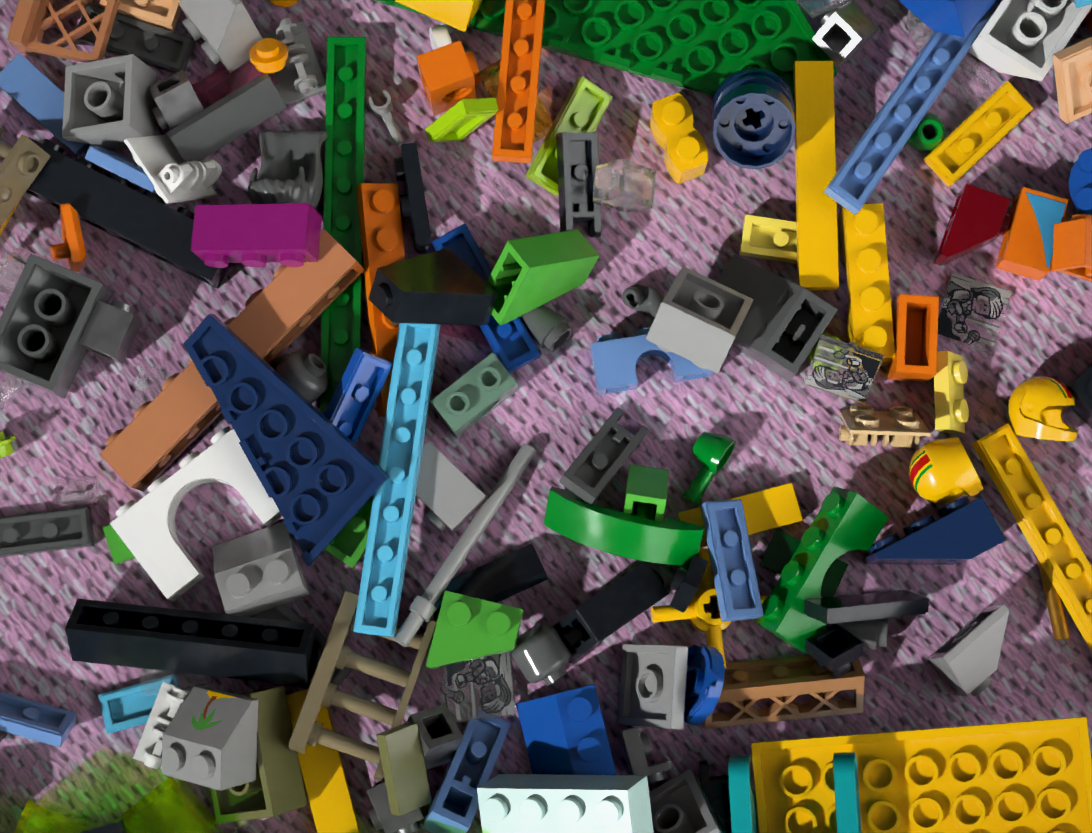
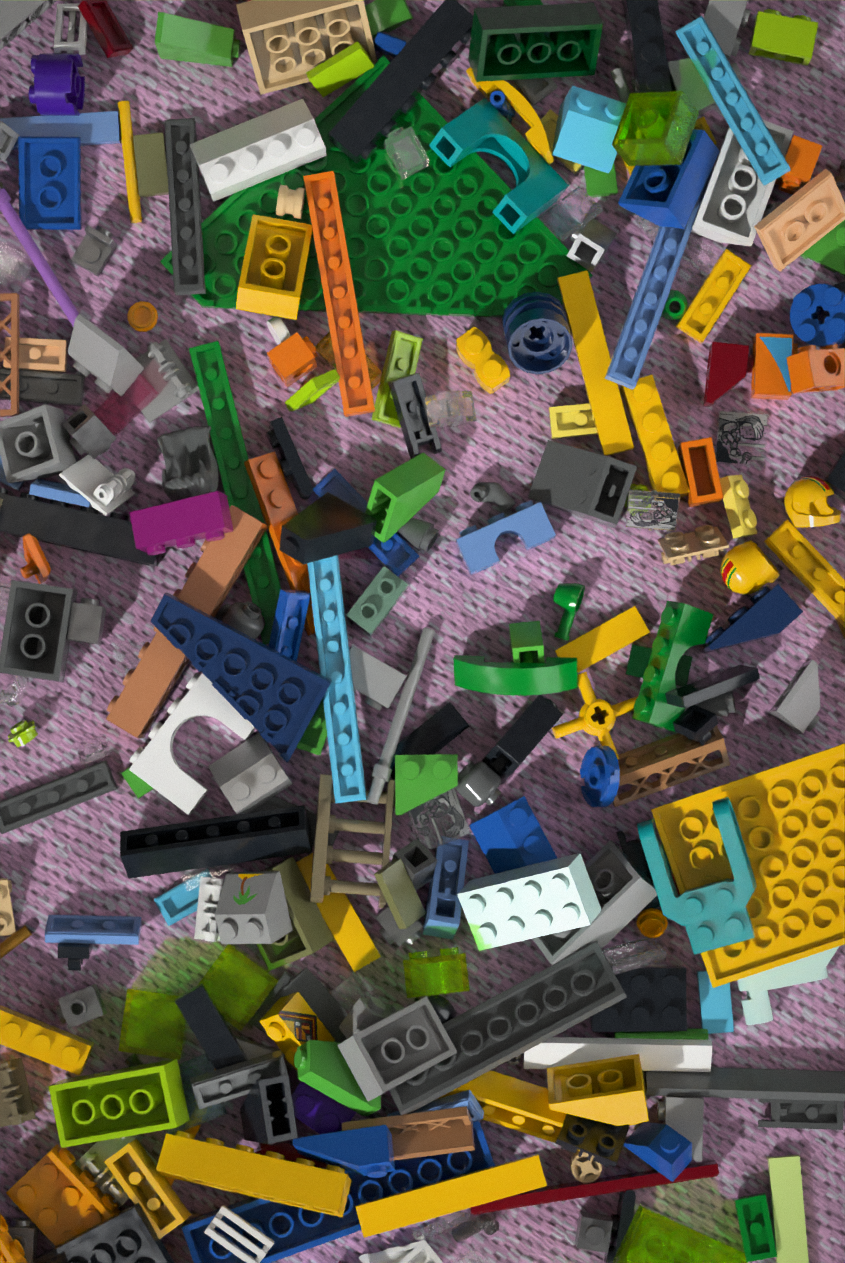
camera: 15 degrees left, 5 degrees up
(227, 119) = (130, 435): dark grey tile -> none
(269, 55) = (149, 377): light orange plate -> none
(385, 113) = (252, 399): light grey hand -> none
(602, 458) = (487, 624): dark grey hinge -> none
(637, 750) = (568, 835): flat silver bracket -> none
(653, 686) = (568, 786): light grey plate -> none
(687, 583) = (574, 702): black plate -> none
(699, 319) = (534, 501): light grey slope -> none
(731, 560) = (603, 677): medium blue tile -> none

